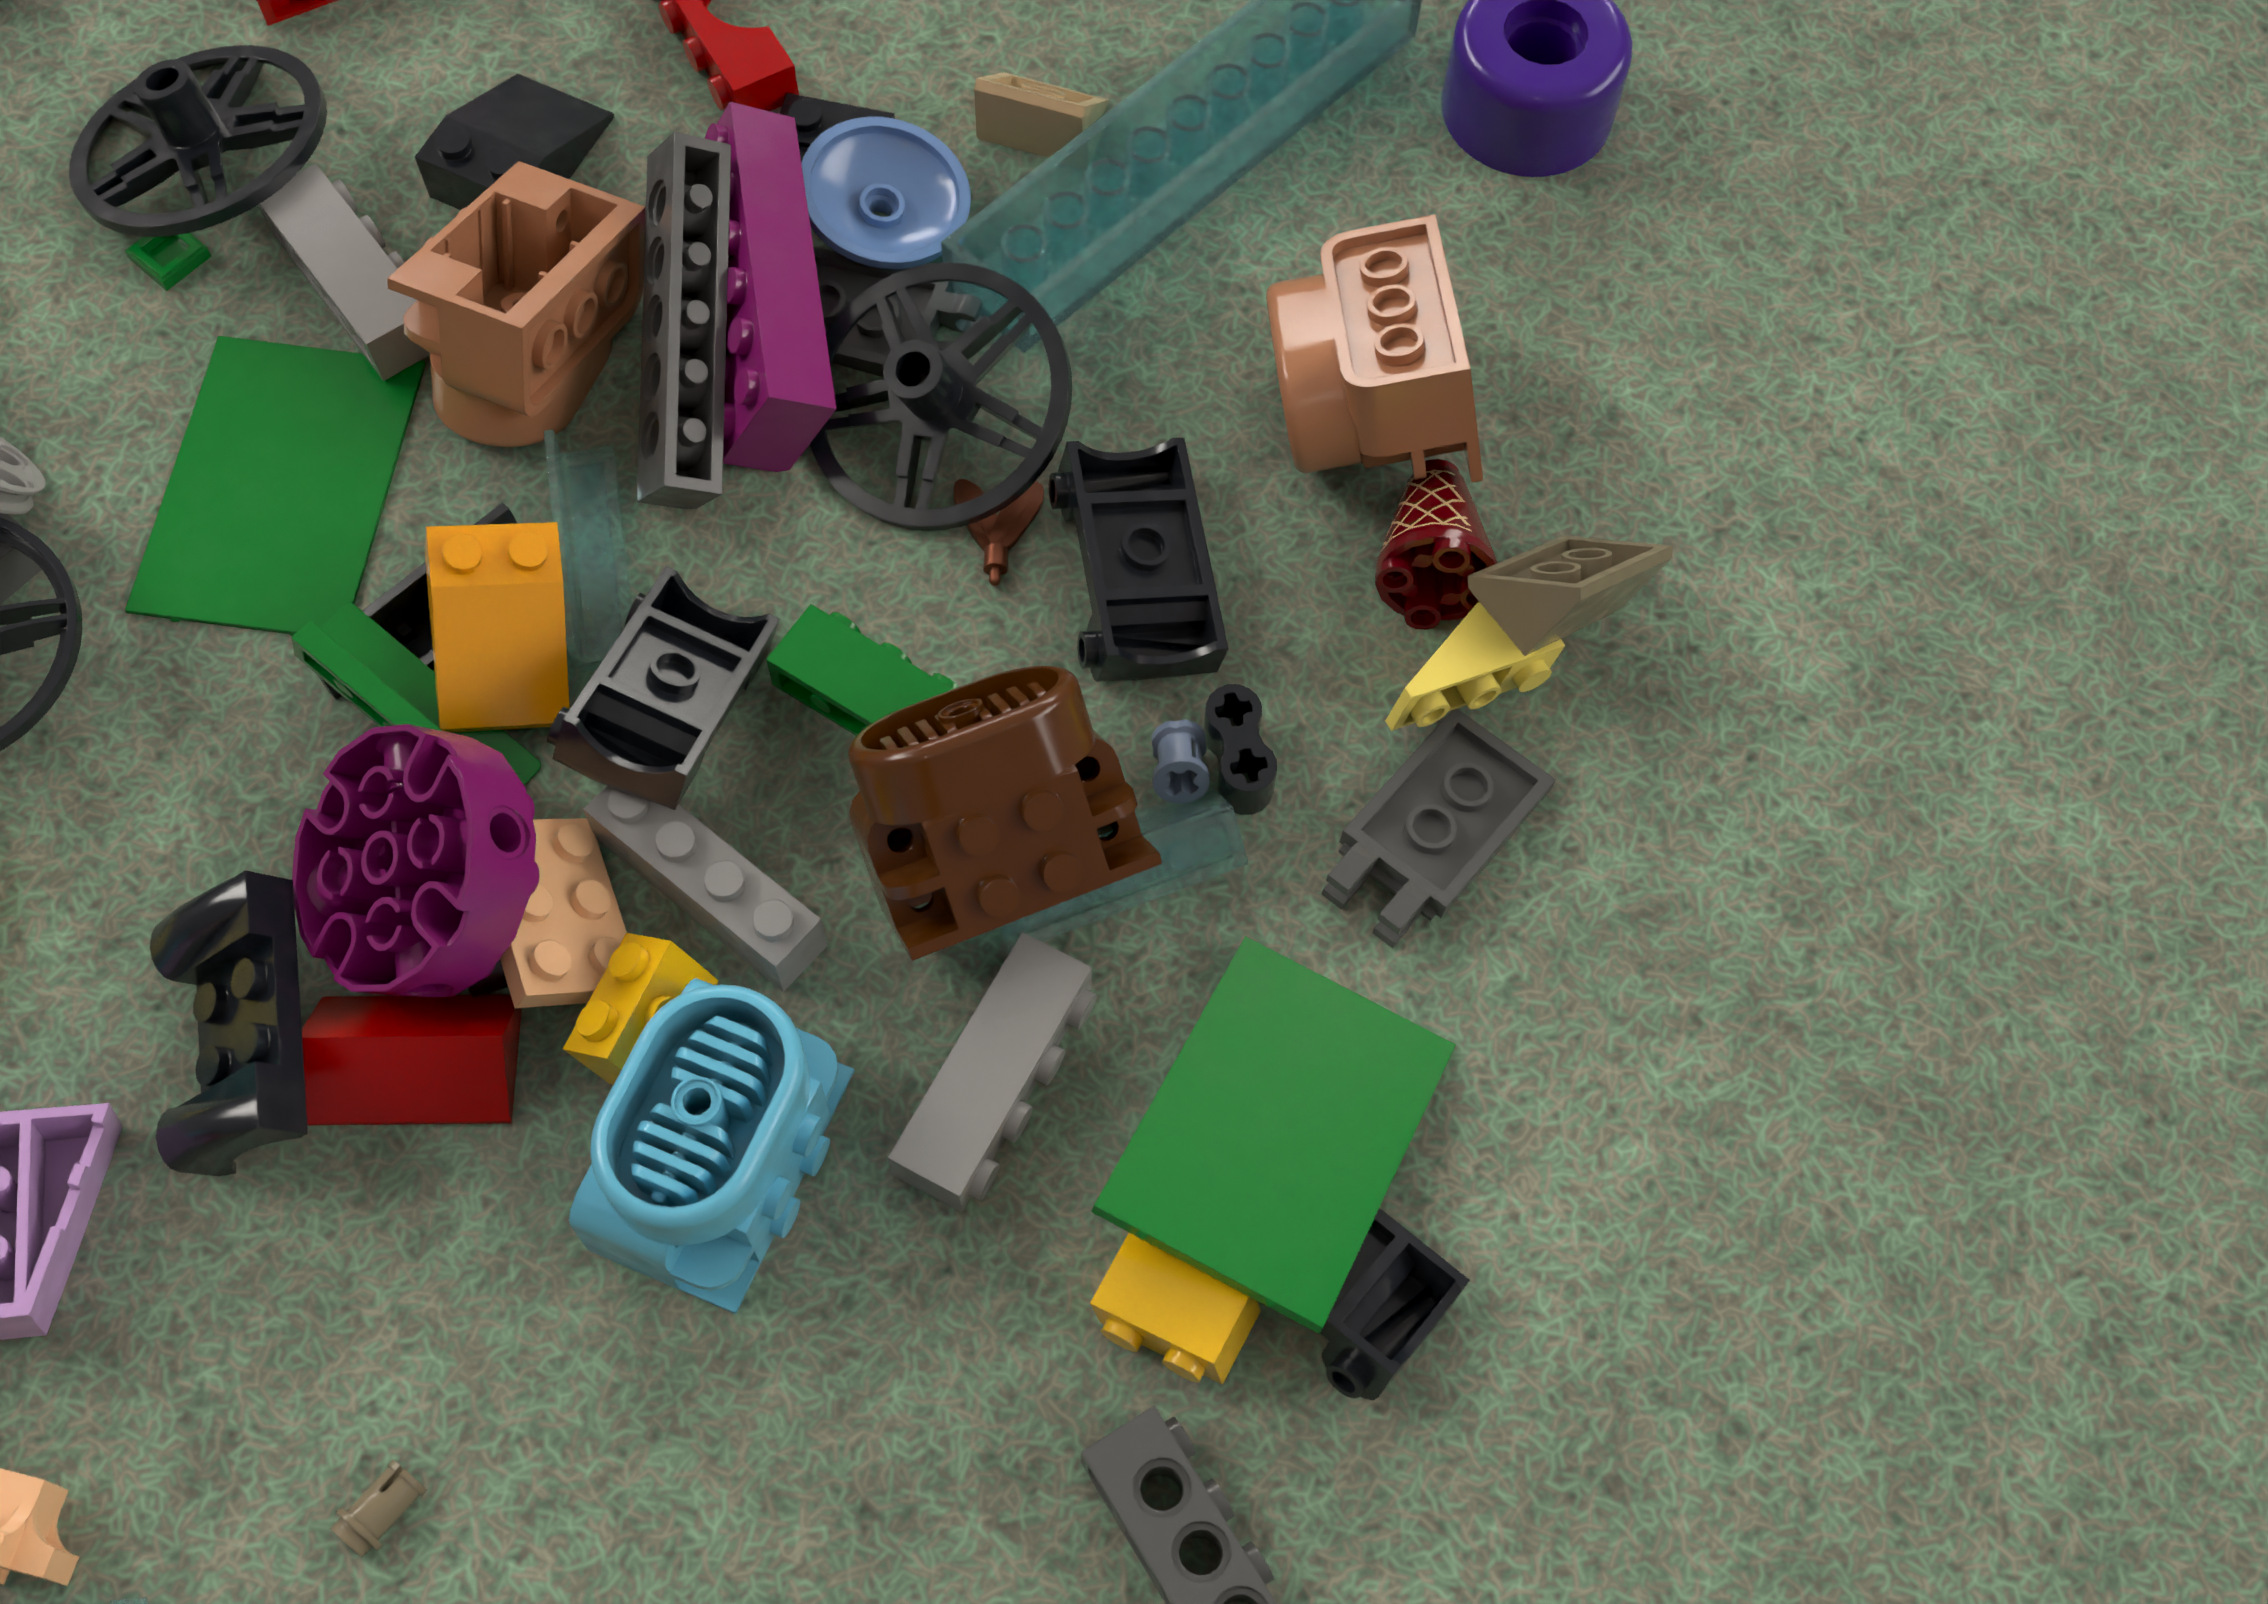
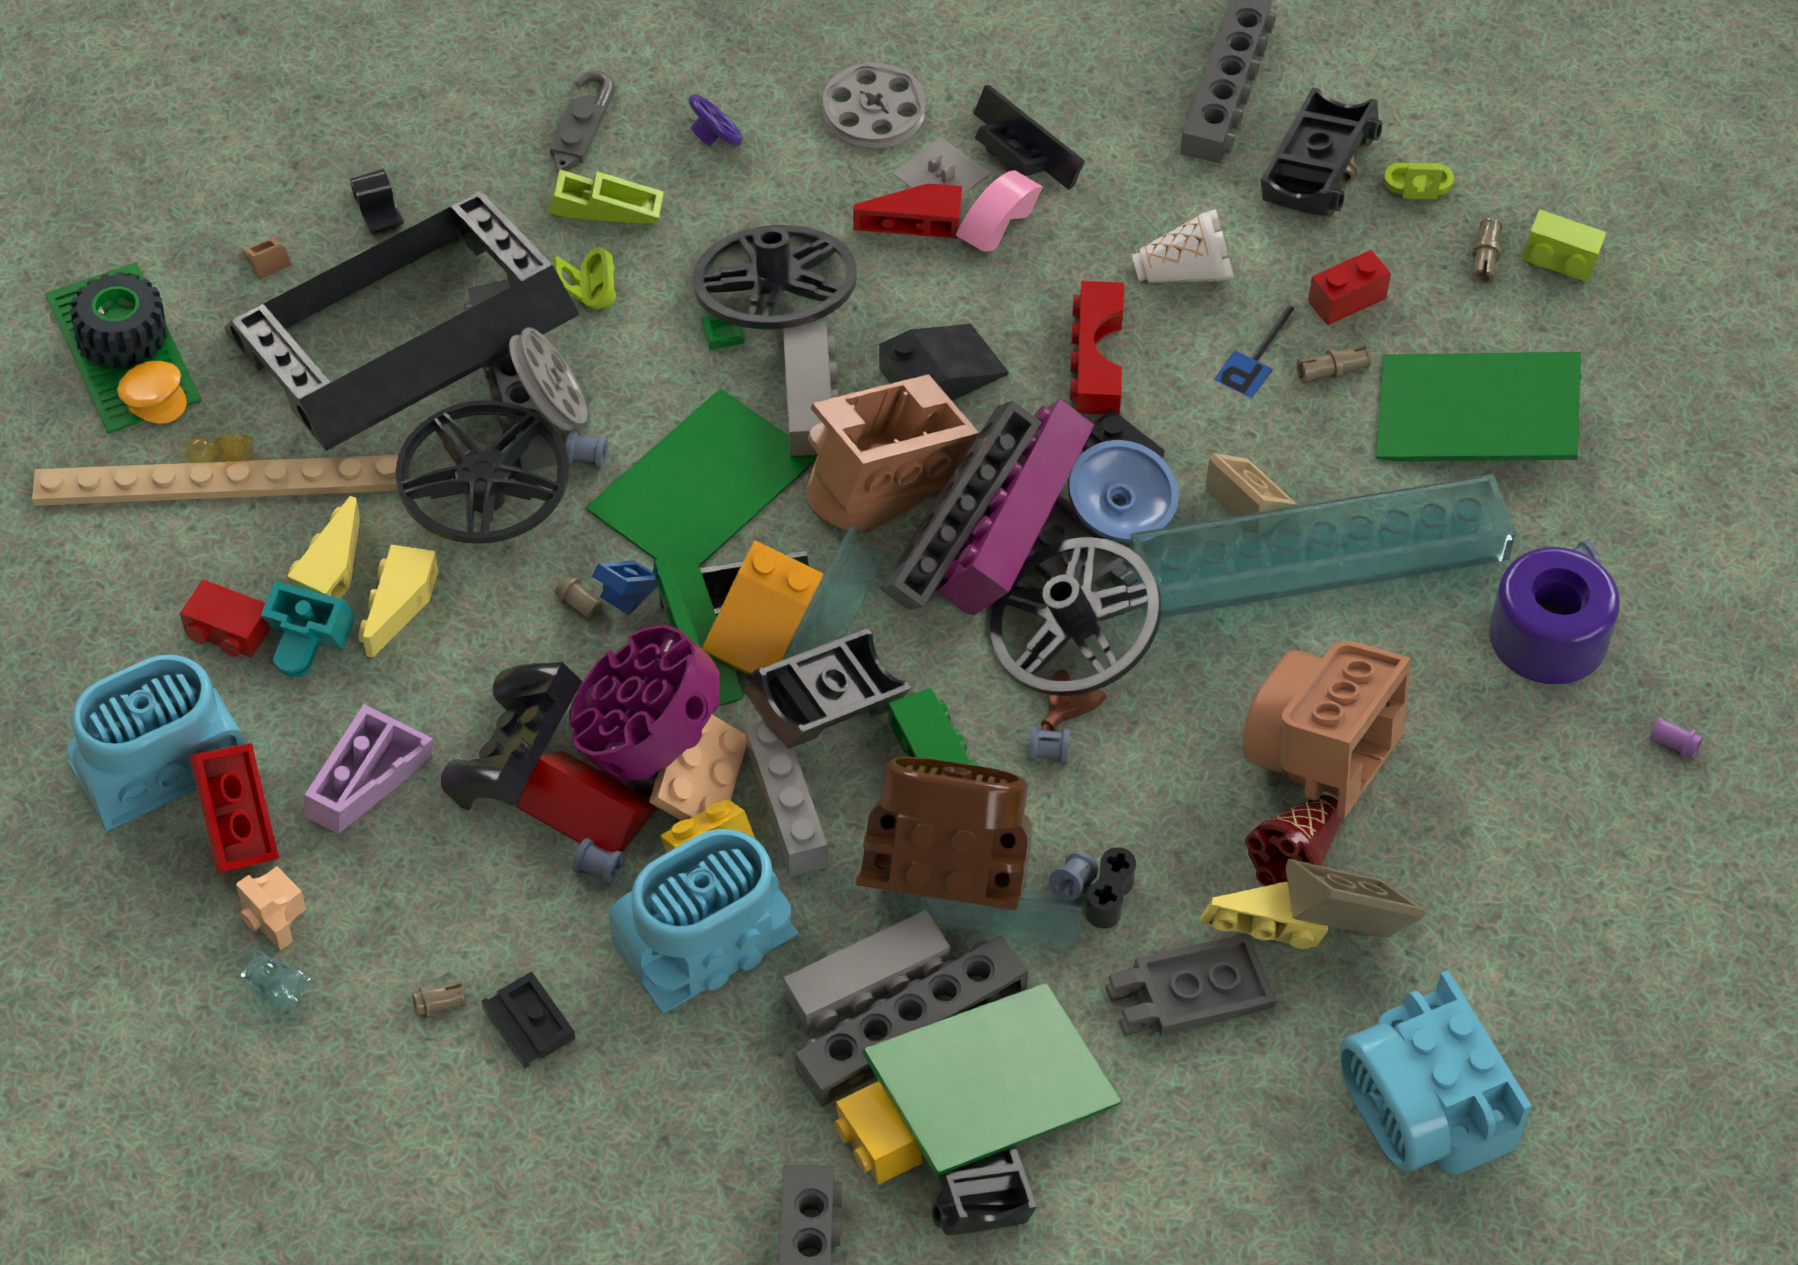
camera: 35 degrees right, 10 degrees down
(73, 524) = (586, 449): none -> sand blue bush
(199, 751) = (579, 598): none -> dark tan pin
(259, 693) = (624, 583): none -> blue slope
(488, 1140) = (597, 861): none -> sand blue bush
(540, 1455) = (528, 1019): none -> black plate
(1018, 593) = (1048, 744): none -> sand blue bush
(1141, 562) = (1125, 762): black piece -> none
(1158, 949) = (833, 1078): none -> dark grey brick
(1773, 155) = (1676, 738): none -> medium lavender pin
(1848, 774) = (1434, 1084): none -> medium azure brick

